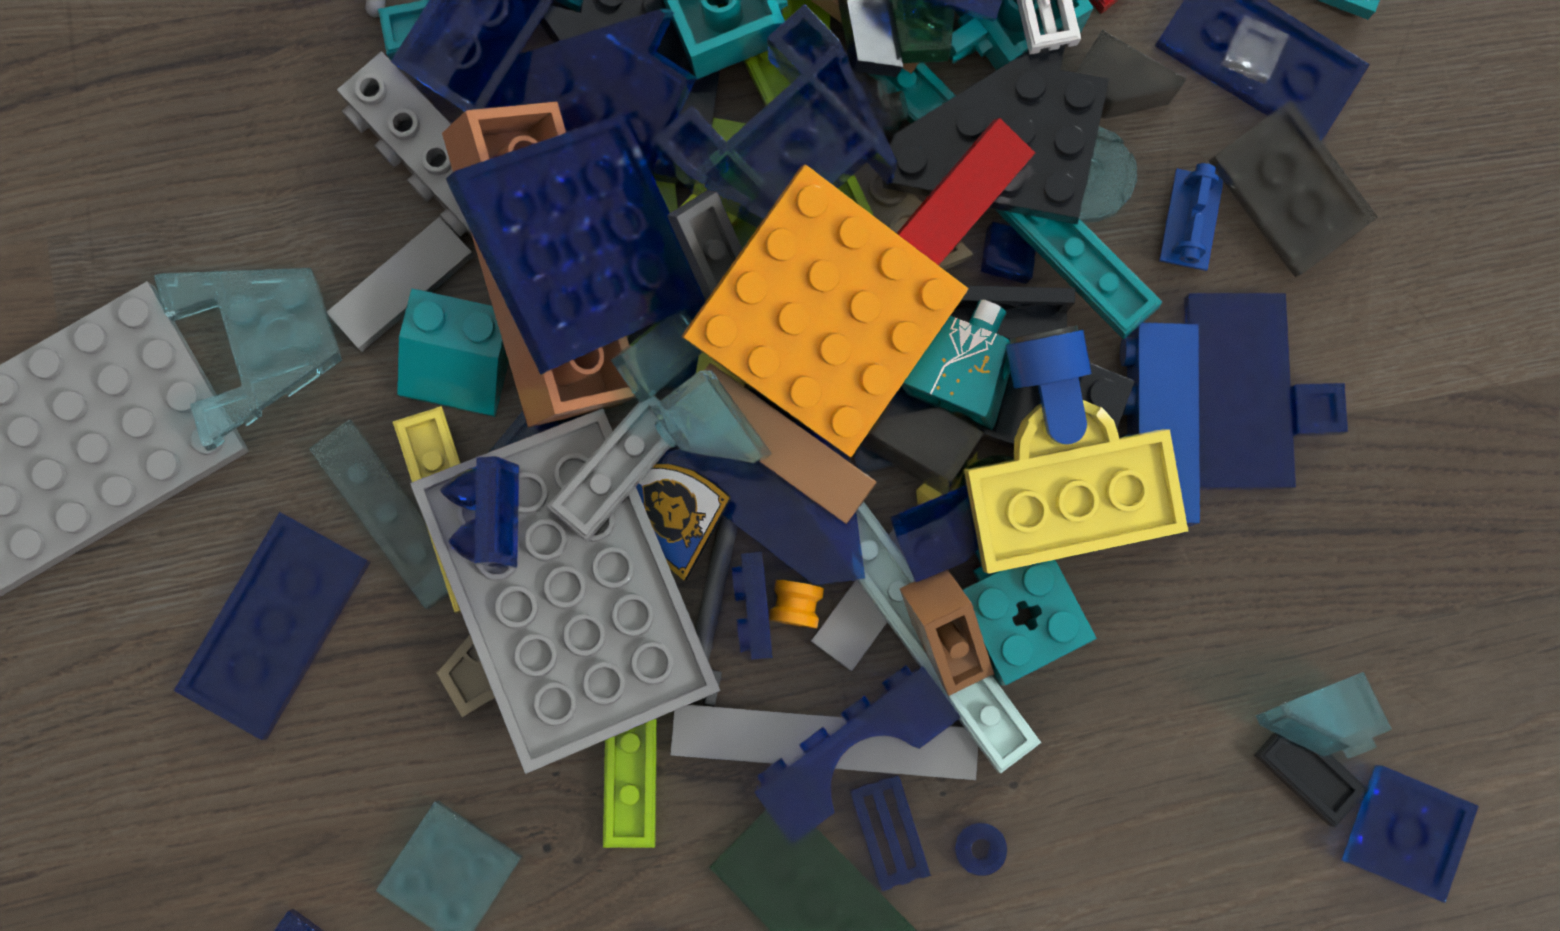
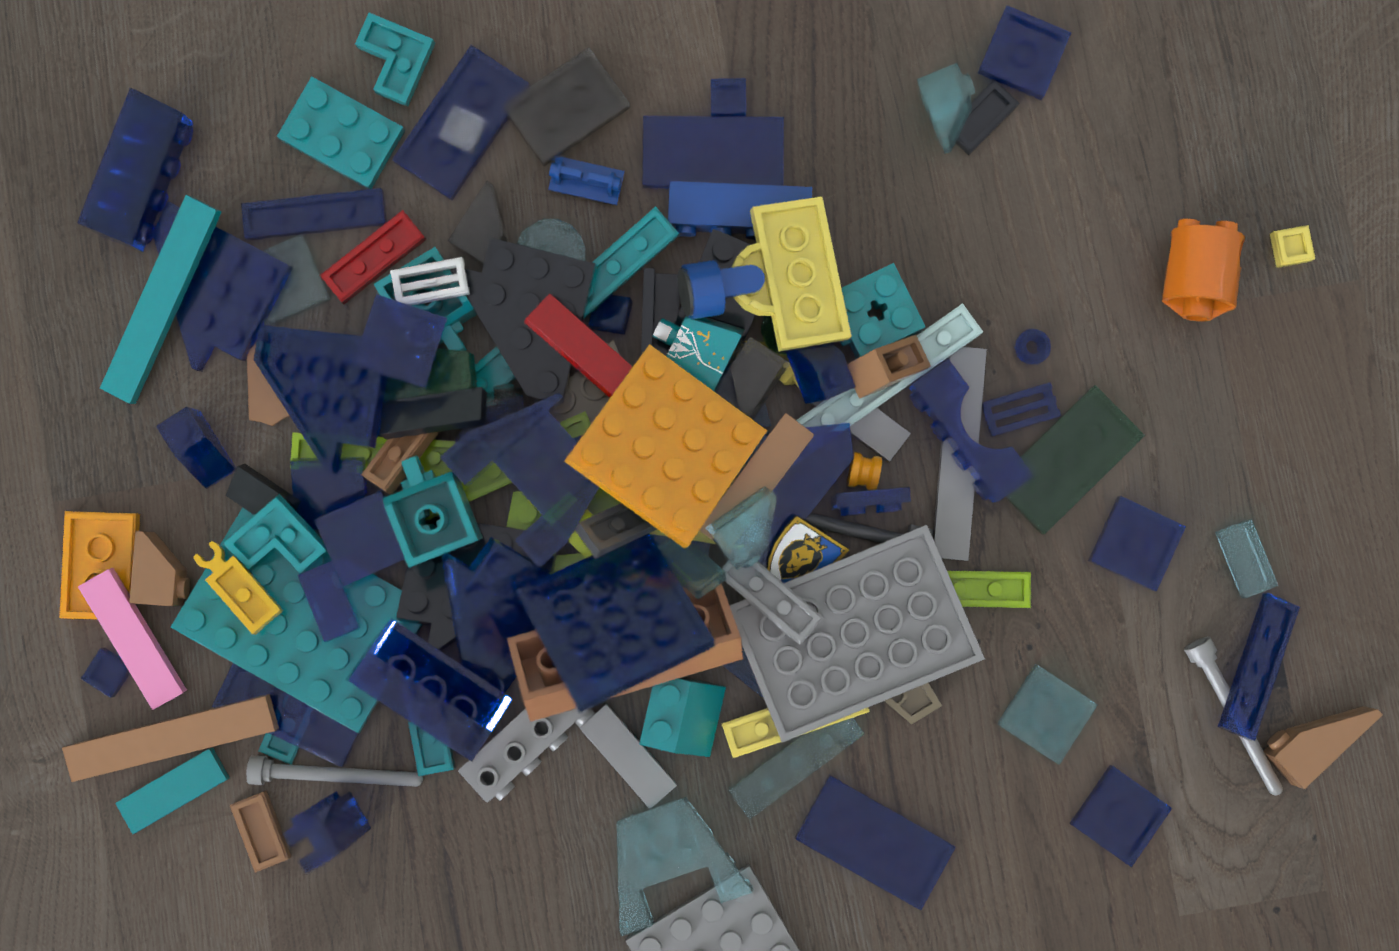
camera: 80 degrees left, 5 degrees up
(494, 495) = (791, 683): clear blue tile -> none

